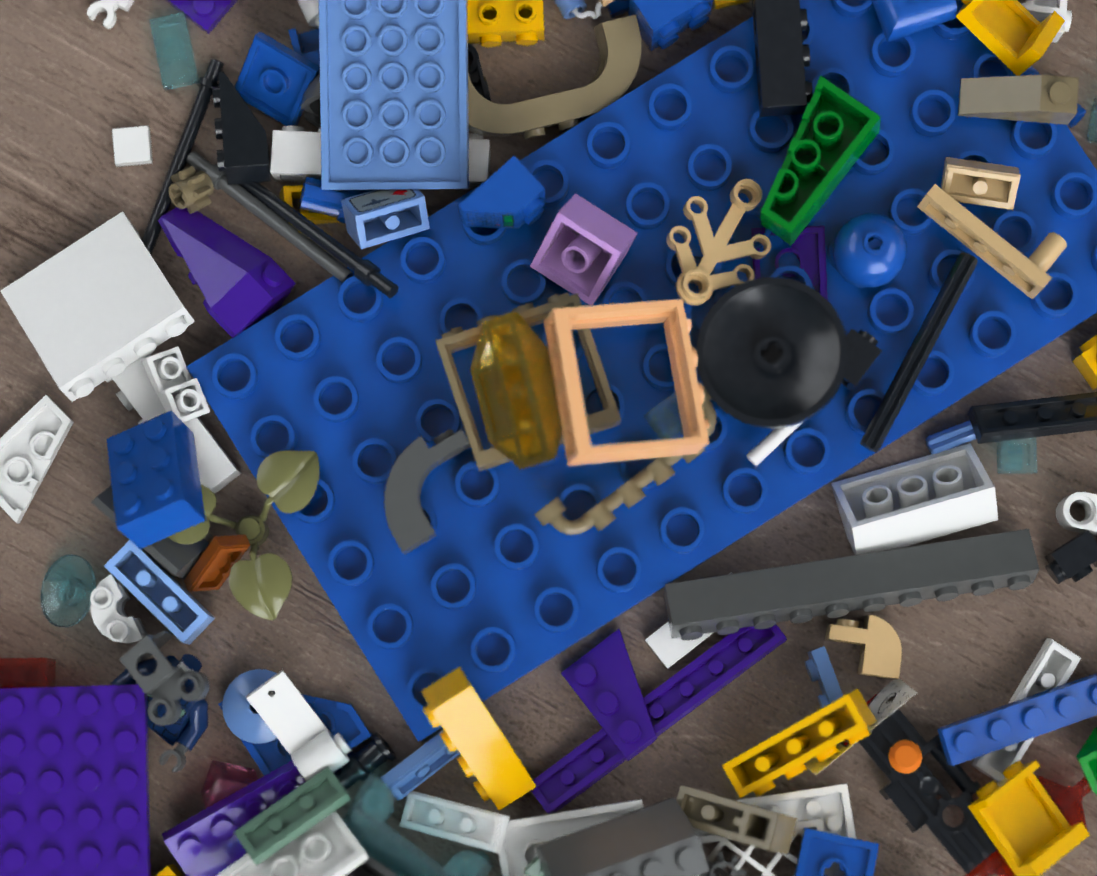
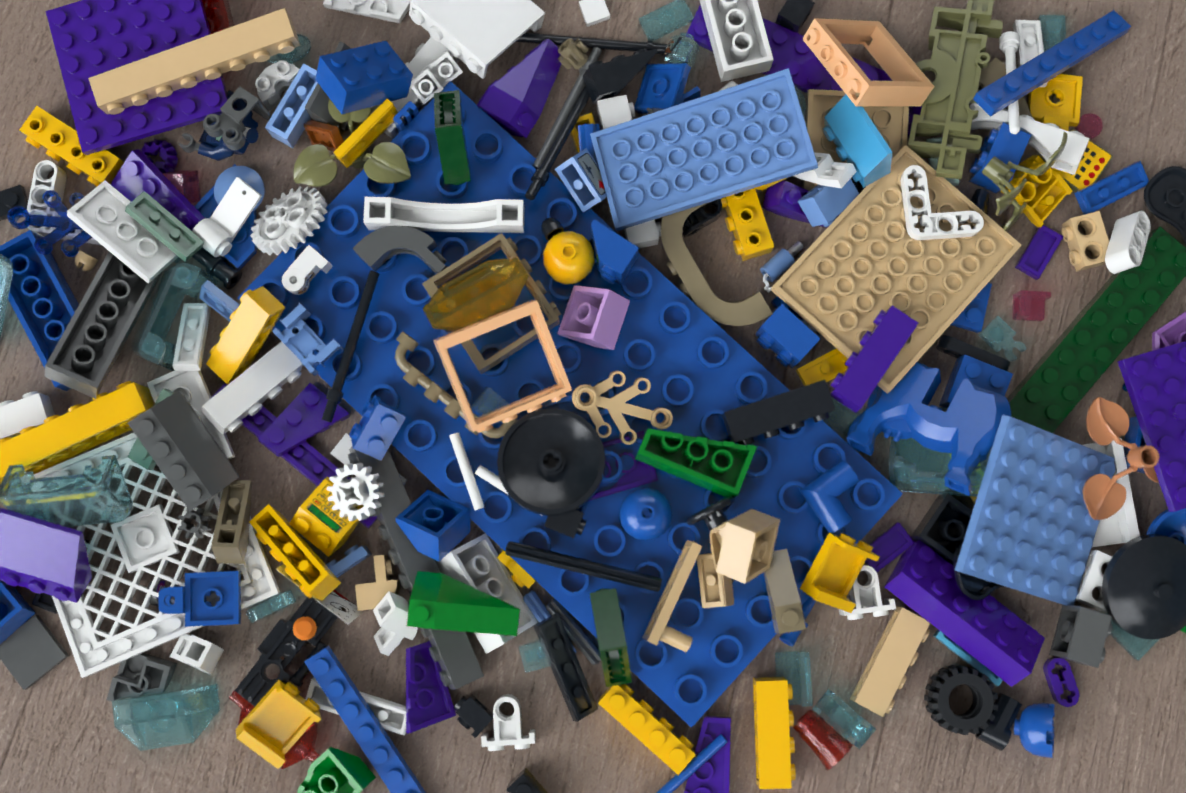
camera: 70 degrees right, 0 degrees up
(68, 712) = (194, 62): none -> tan brick
(172, 799) = (166, 152): none -> dark purple gear
(224, 441) = (413, 112): none -> blue tile
(228, 40) = (681, 50): none -> clear light blue head
(233, 499) = (366, 133): none -> yellow tile
(278, 375) = (451, 137): none -> dark green arch
(326, 641) = (289, 220): none -> white gear
(389, 413) = (486, 216): none -> white arch
(417, 640) = (303, 270): none -> white leg
(442, 275) = (551, 227): none -> black hinge
(490, 263) = (568, 257): none -> yellow cylinder
(514, 652) = (305, 342): none -> medium blue piece
(553, 749) = (252, 388): none -> white brick
(598, 630) = (335, 394): none -> black bar
(659, 584) = (376, 428): none -> bracket
(749, 623) = (355, 491): none -> white gear
(750, 476) = (466, 471): none -> white bar
(759, 688) = (320, 523): none -> yellow slope
(808, 541) = (434, 524): none -> blue slope
(861, 801) = (271, 606): none -> clear light blue beam
(902, 447) = (519, 575): none -> yellow plate
(928, 630) = (392, 618): none -> white brick
(930, 538) = (452, 605): none -> green wedge
(943, 132) = (741, 545): none -> tan piece
(999, 393) = (575, 632): none -> dark grey axle
(1022, 335) = (611, 637): none -> dark green arch
(1031, 614) = (426, 695): none -> dark purple wing

